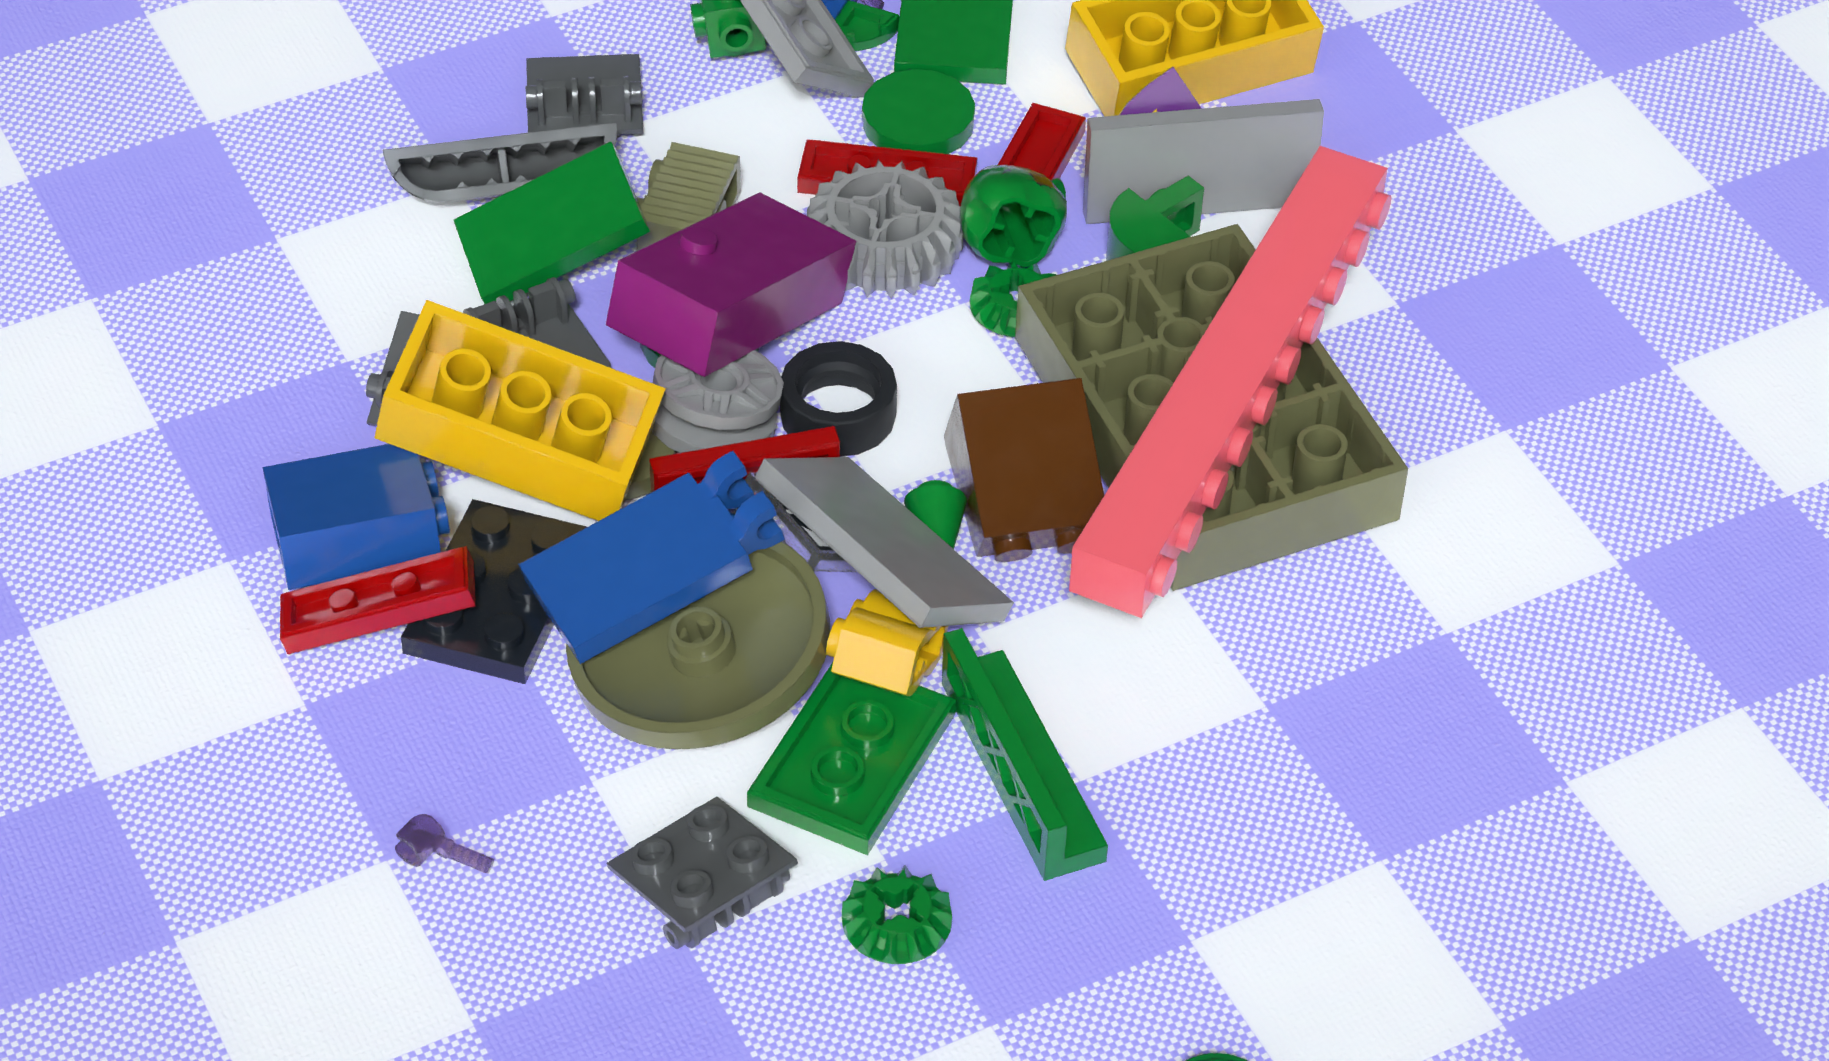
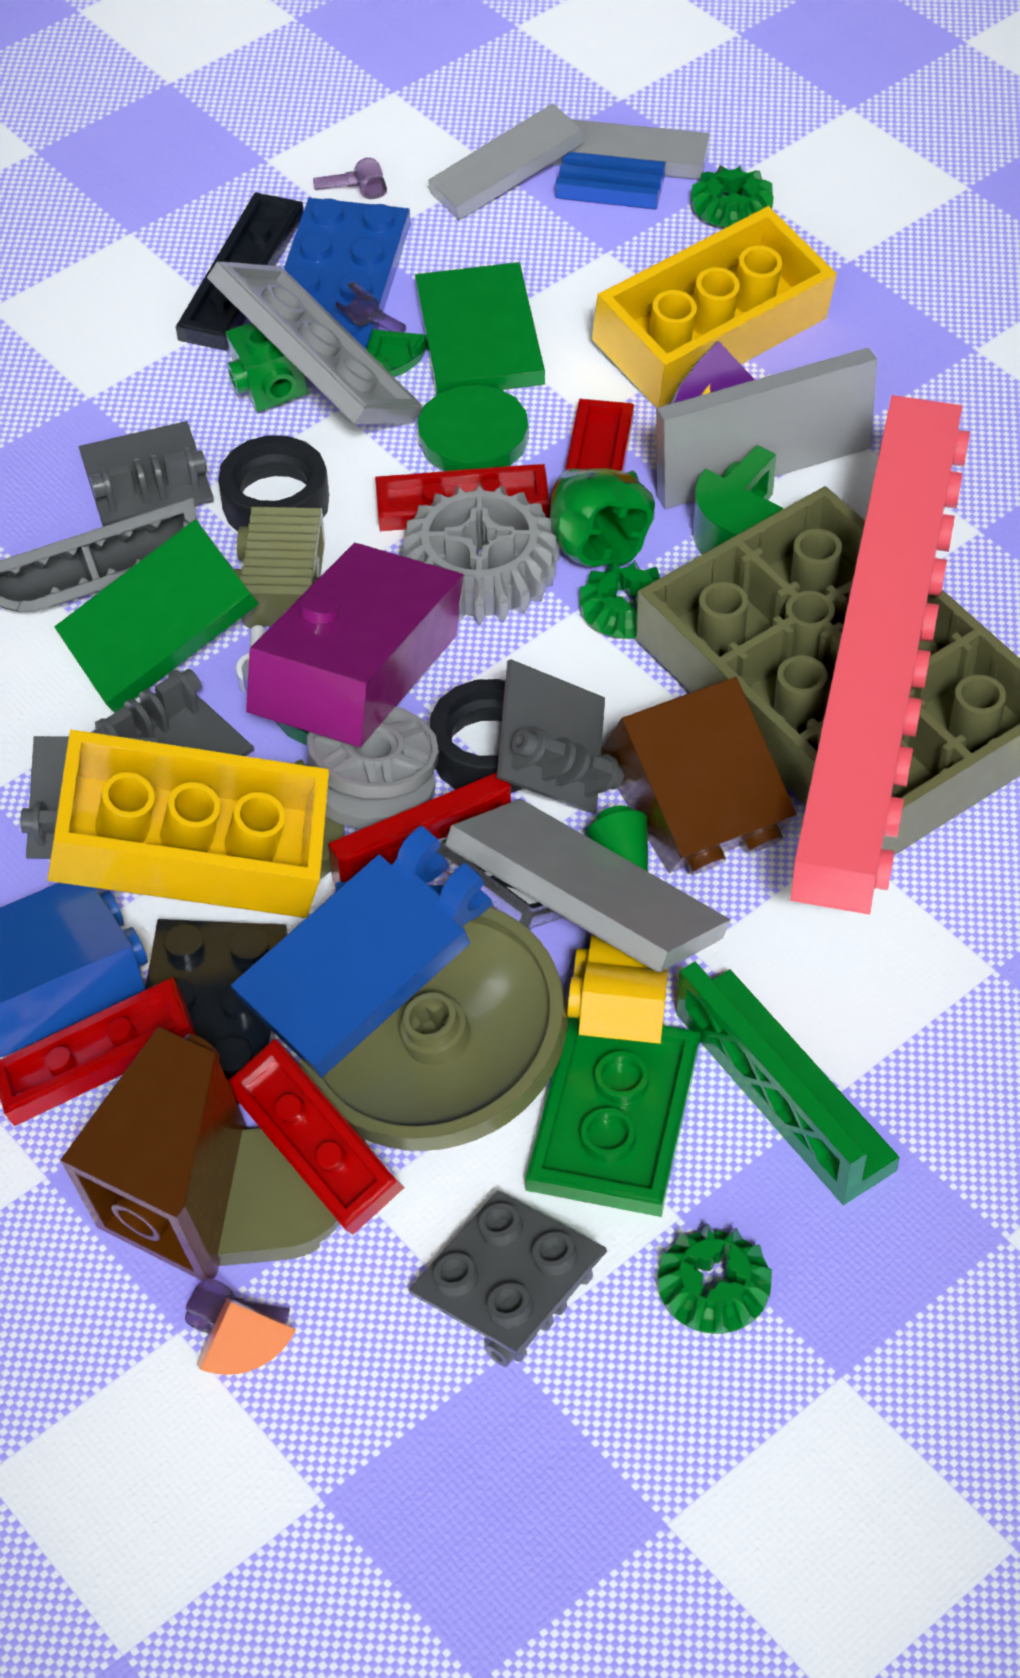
camera: 10 degrees left, 5 degrees up
(412, 694) = (163, 1154): none -> reddish brown slope
(441, 874) = (243, 1340): none -> tile
(509, 759) = (270, 1208): none -> olive tile
(557, 712) = (314, 1137): none -> red tile
(700, 103) = (267, 458): none -> black tyre
(895, 407) = (554, 739): none -> dark grey hinge

